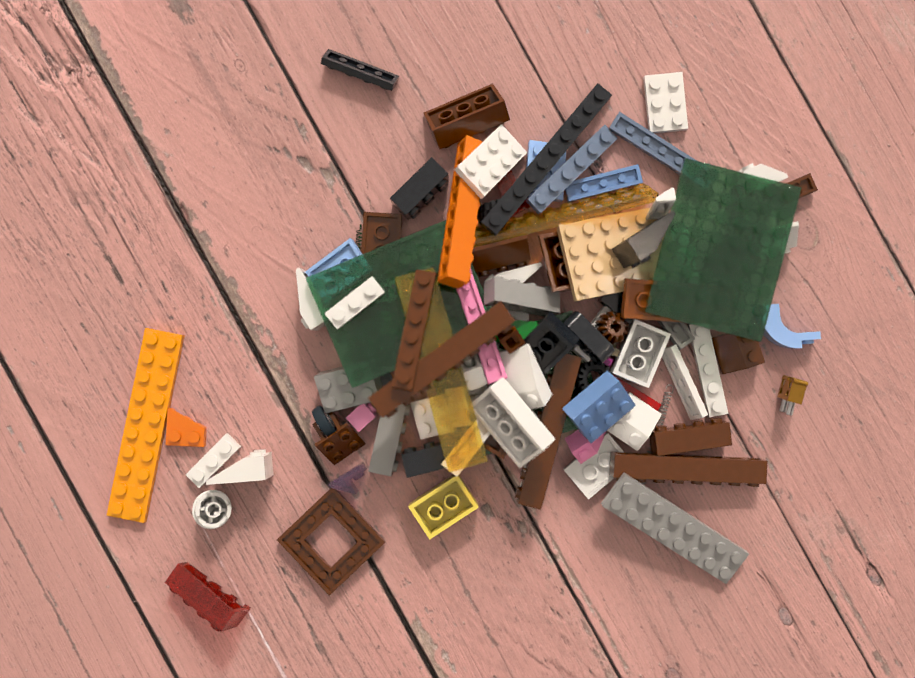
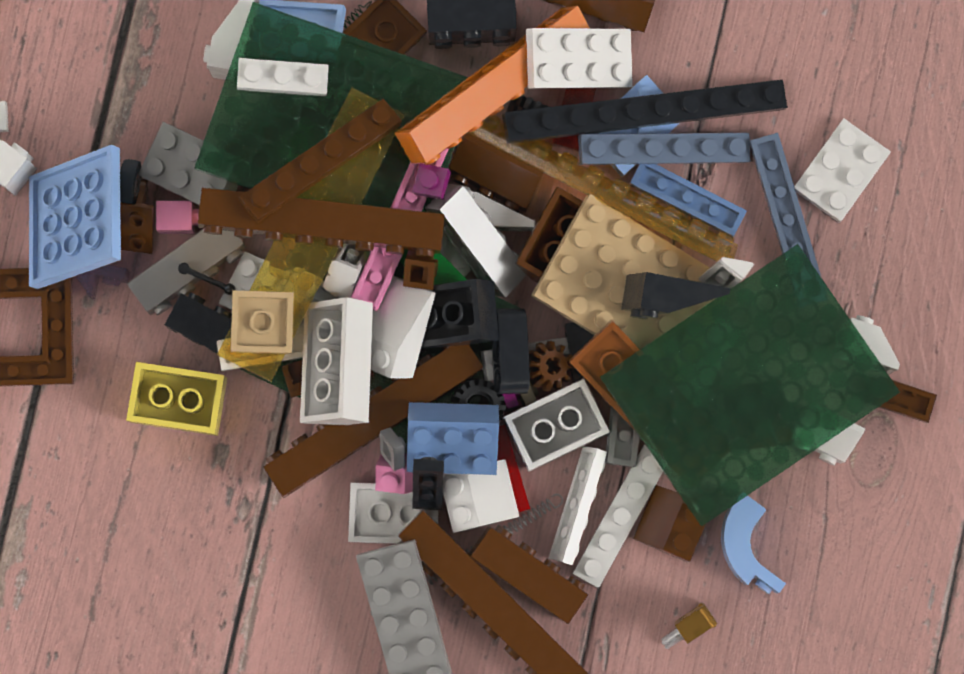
camera: 30 degrees right, 5 degrees down
(314, 463) = (74, 217): none -> light blue plate
(389, 439) = (184, 268): none -> black hinge
(458, 437) = (262, 322): none -> tan plate
(476, 289) = (431, 181): none -> magenta plate
(573, 437) = (392, 448): none -> light grey plate
(607, 439) = (428, 483): none -> black plate

